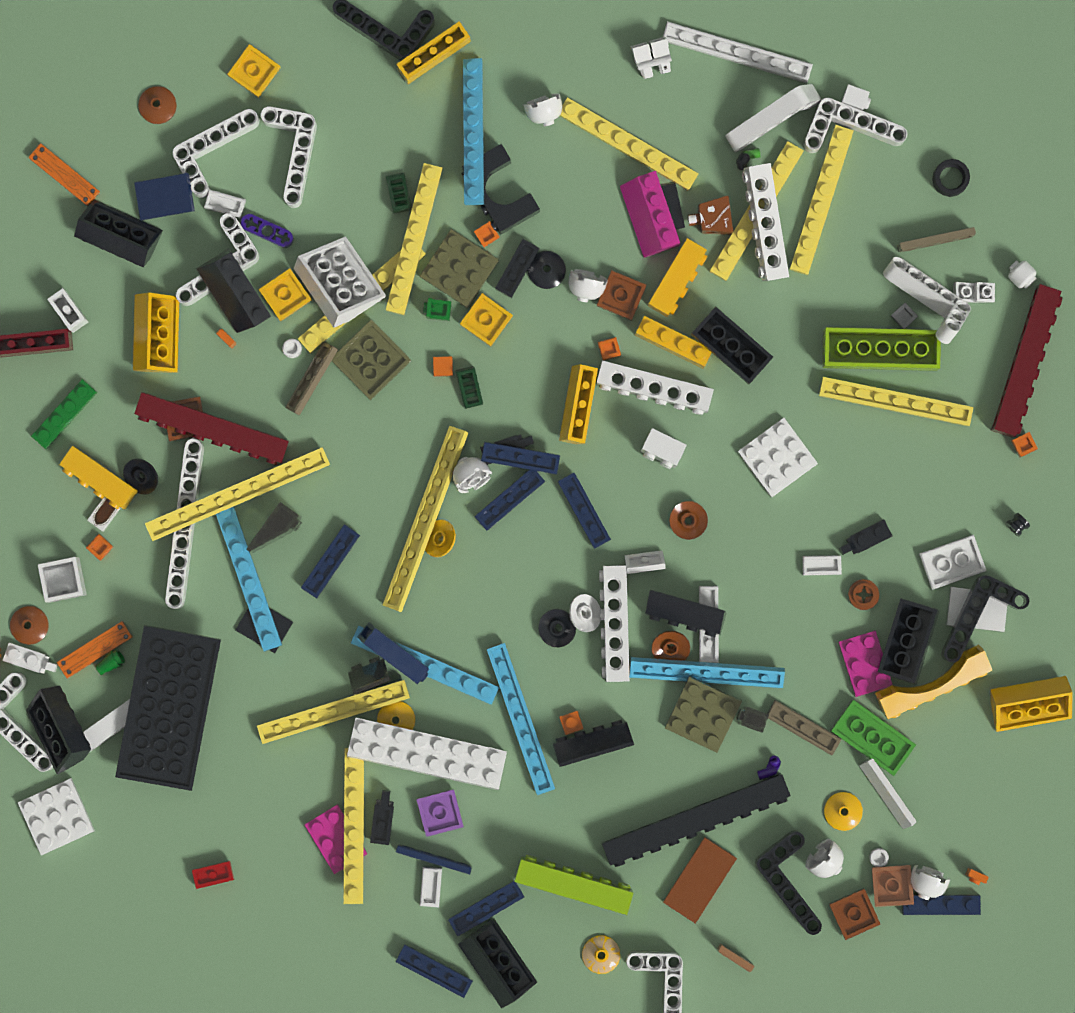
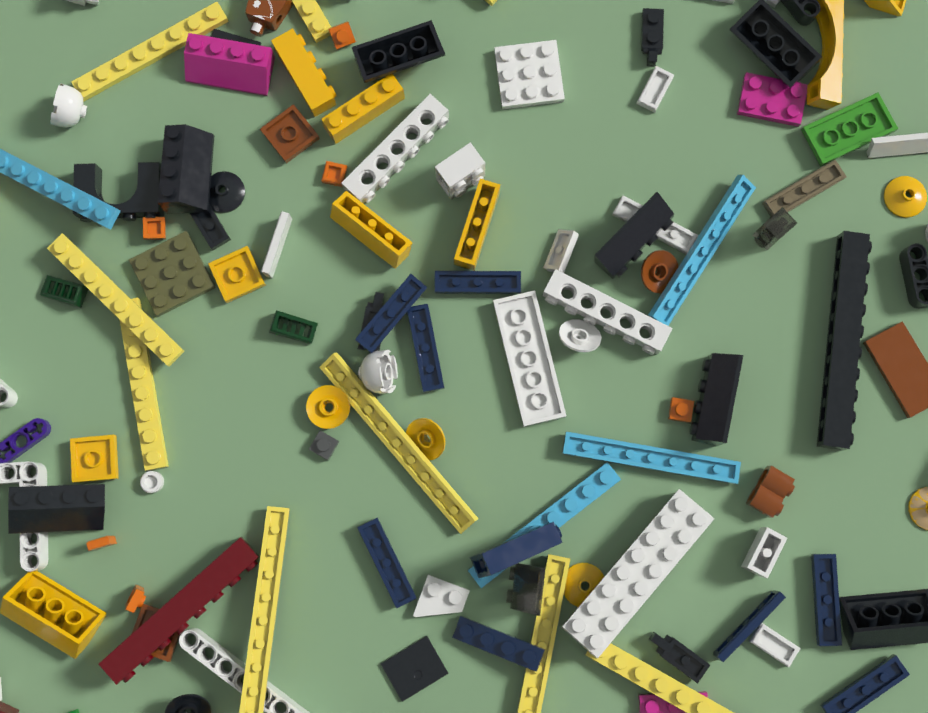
camera: 55 degrees left, 5 degrees down
(200, 388) = (135, 599): none -> orange plate
(249, 579) = (357, 657): medium azure plate -> none
(278, 525) = (319, 596): clear smoke slope -> none
(311, 378) = (192, 479): dark tan tile -> none
(317, 678) = (498, 643): none -> dark blue plate
(326, 616) = (440, 598): none -> white wing
(338, 281) = (111, 397): white slope -> none
(371, 360) = (209, 409): olive plate -> none
(392, 463) = (324, 445): none -> dark grey plate
(415, 443) = (317, 404): none -> yellow dish
(437, 309) = (198, 315): green bracket -> none
(440, 813) = (704, 593): medium lavender plate -> none
(443, 366) = (257, 342): orange tile -> none
(495, 841) = (764, 552): none -> white brick
(526, 337) = (276, 244): none -> white tile
(544, 823) = (770, 492): none -> dark orange brick
(545, 233) = (185, 170): none -> black slope
(546, 583) = (529, 358): none -> white plate
(548, 630) = (579, 382): black dish -> none
(574, 885) = (851, 496): lime brick -> none
(586, 285) = (260, 160): white cylinder -> none
(628, 485) = (477, 224): none -> yellow brick
(696, 513) = (546, 178): dark orange dish -> none
(703, 714) = (742, 276): olive plate -> none
(725, 290) = (342, 35): none -> orange plate
(771, 769) = (829, 241): dark purple arm -> none
(870, 588) = (714, 65): dark orange gear -> none

